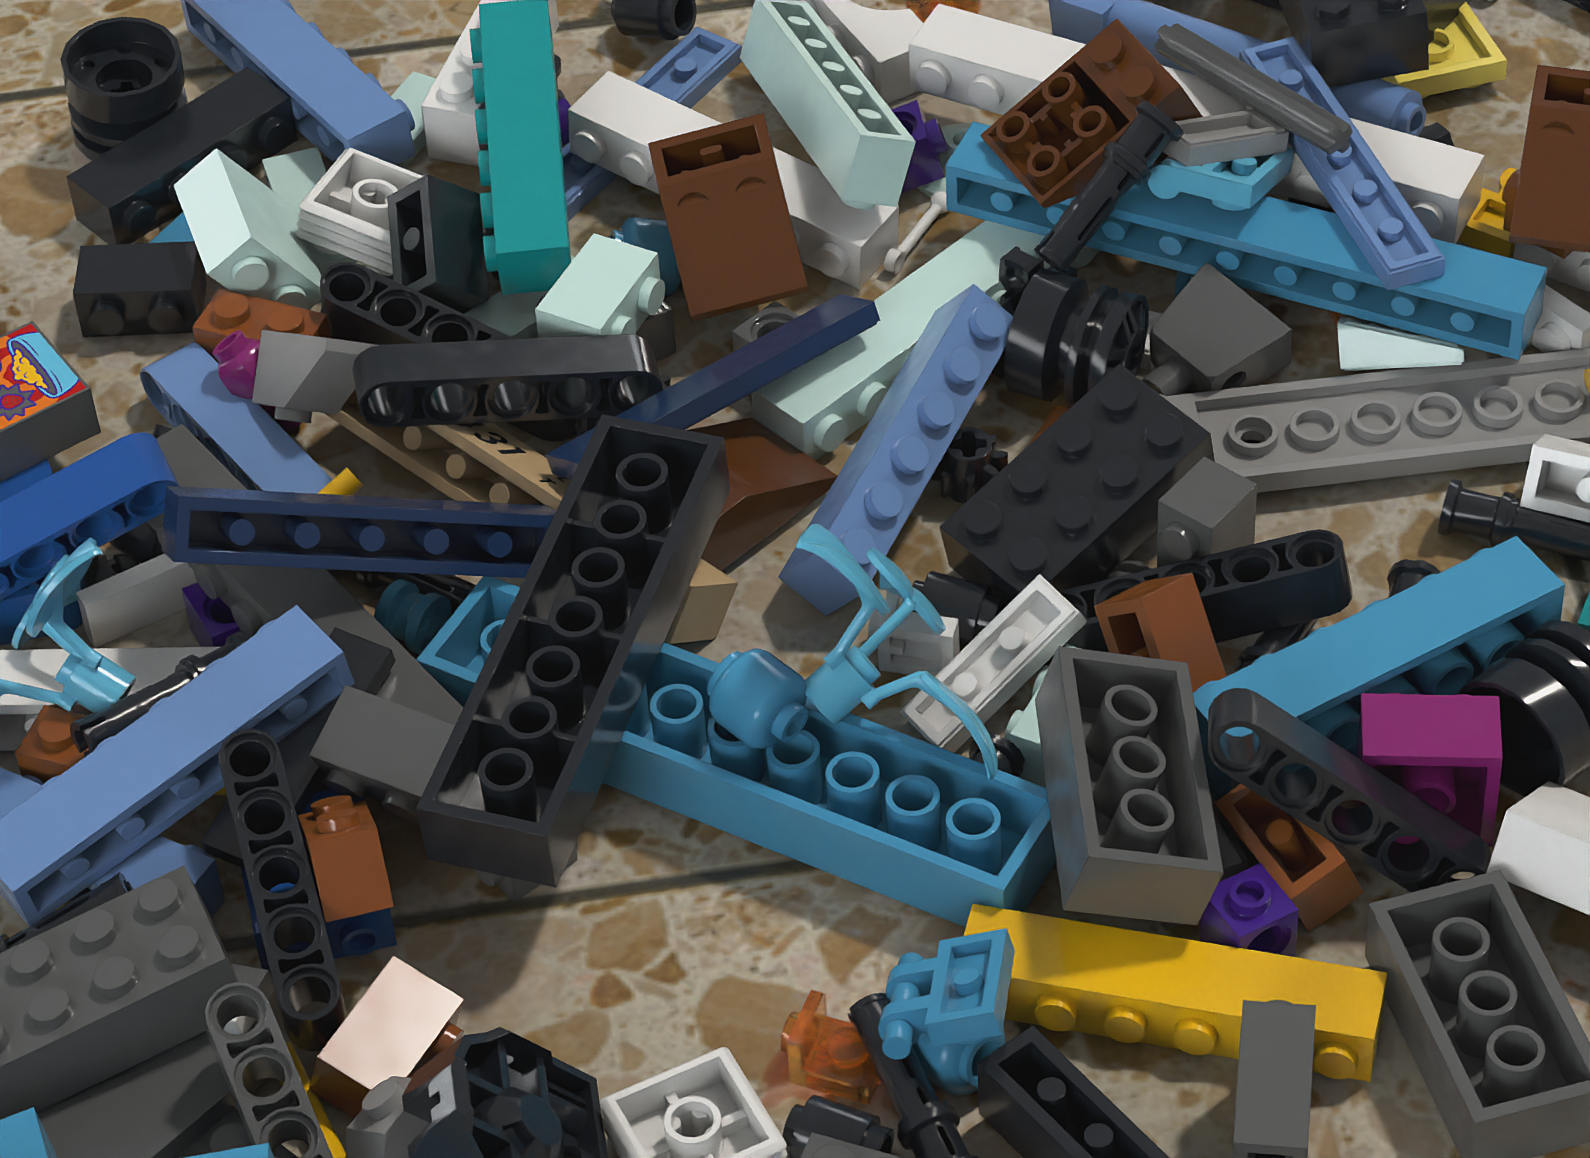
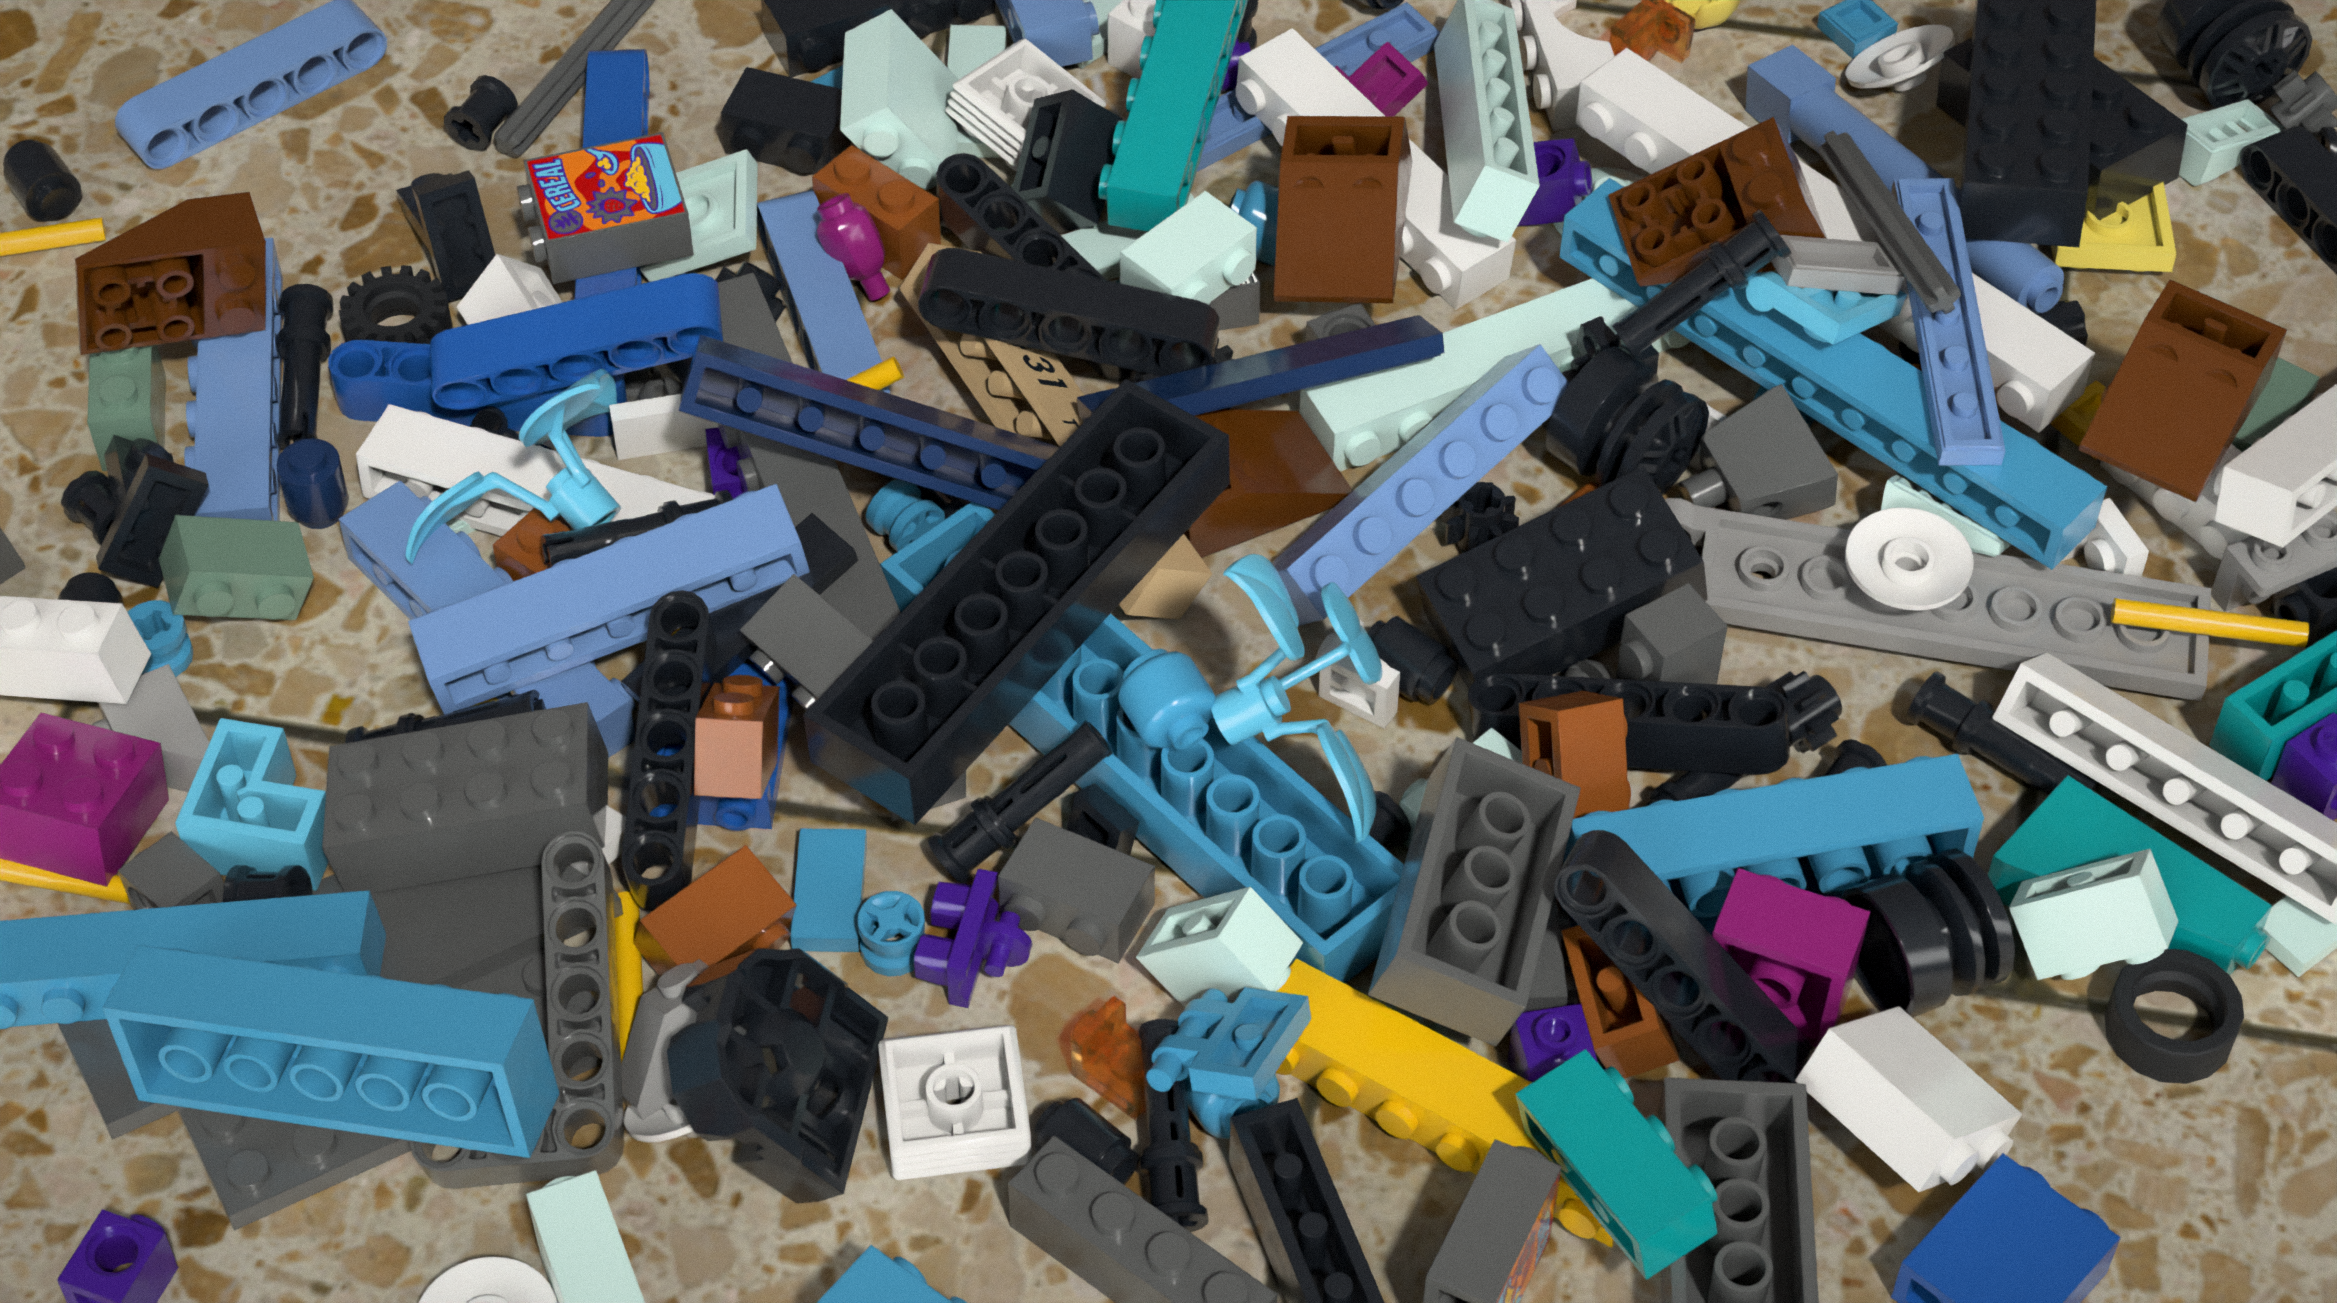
camera: 15 degrees right, 5 degrees up
(118, 388) = (720, 211): none -> light aqua plate
(304, 374) = (889, 252): light grey slope -> none
(482, 973) = (829, 889): none -> dark azure tile
(550, 989) = (884, 918): none -> dark azure wheel
(626, 866) = (996, 820): none -> black pin
(636, 1009) = (978, 938): none -> dark purple hips
(713, 94) = (1387, 80): none -> magenta bracket
(727, 908) = (1077, 890): none -> dark grey brick
(728, 847) = (1102, 819): none -> black plate
(895, 257) = (1500, 289): white hinge -> none
(895, 911) = (1220, 945): none -> light aqua brick
(997, 662) = (1427, 722): white tile -> none
(1360, 543) = (1811, 709): none -> black gear
(1365, 988) = (1619, 1162): none -> teal brick
(1388, 385) = (1909, 558): none -> white dish

